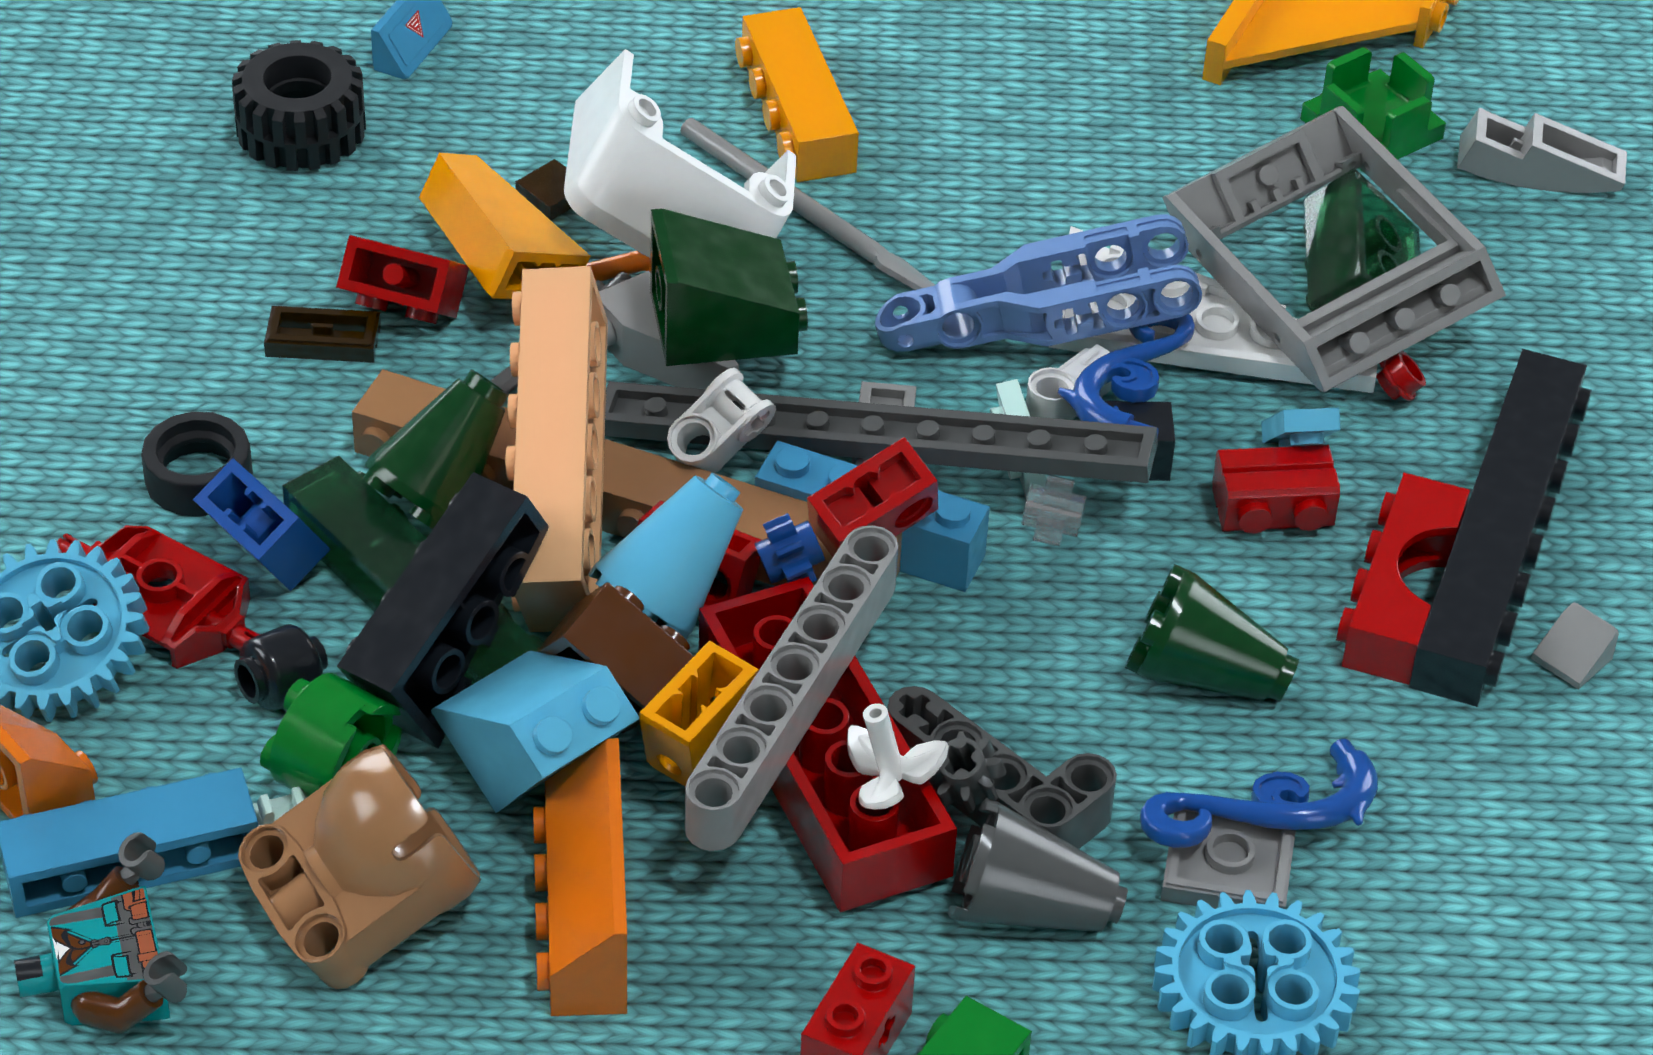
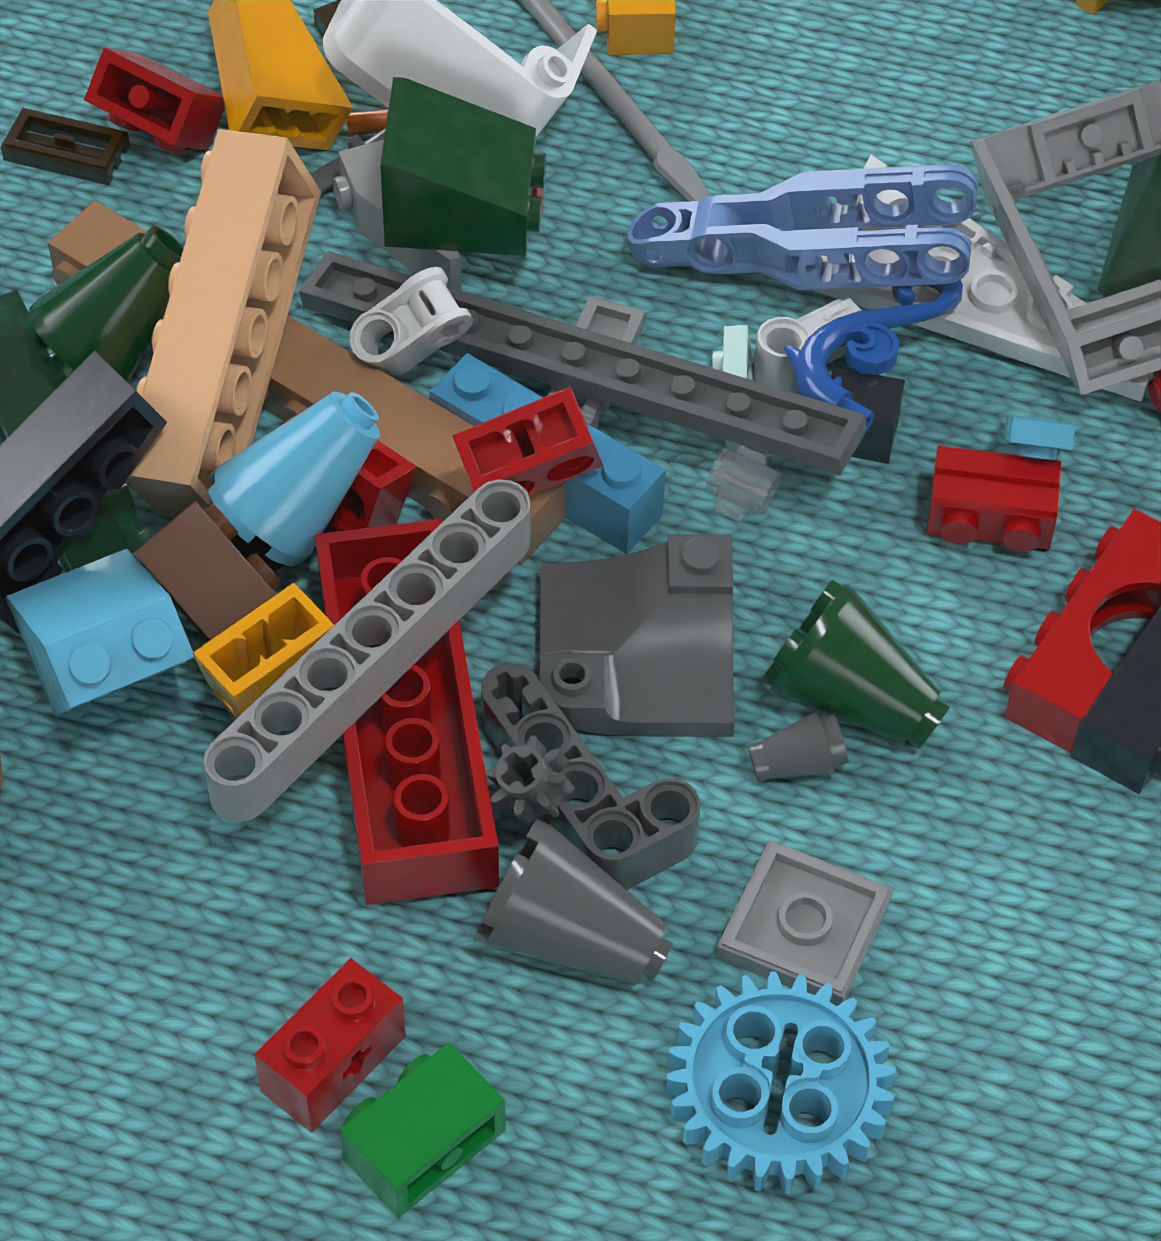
camera: 15 degrees right, 10 degrees up
(584, 887) = (100, 830): orange slope -> none
(789, 550) = (430, 485): blue gear -> none
(876, 753) = (437, 745): white plant -> none
(1011, 650) = (643, 639): none -> dark grey slope
(1181, 717) = (801, 749): none -> dark grey cone
(1276, 802) = (861, 881): blue plant -> none

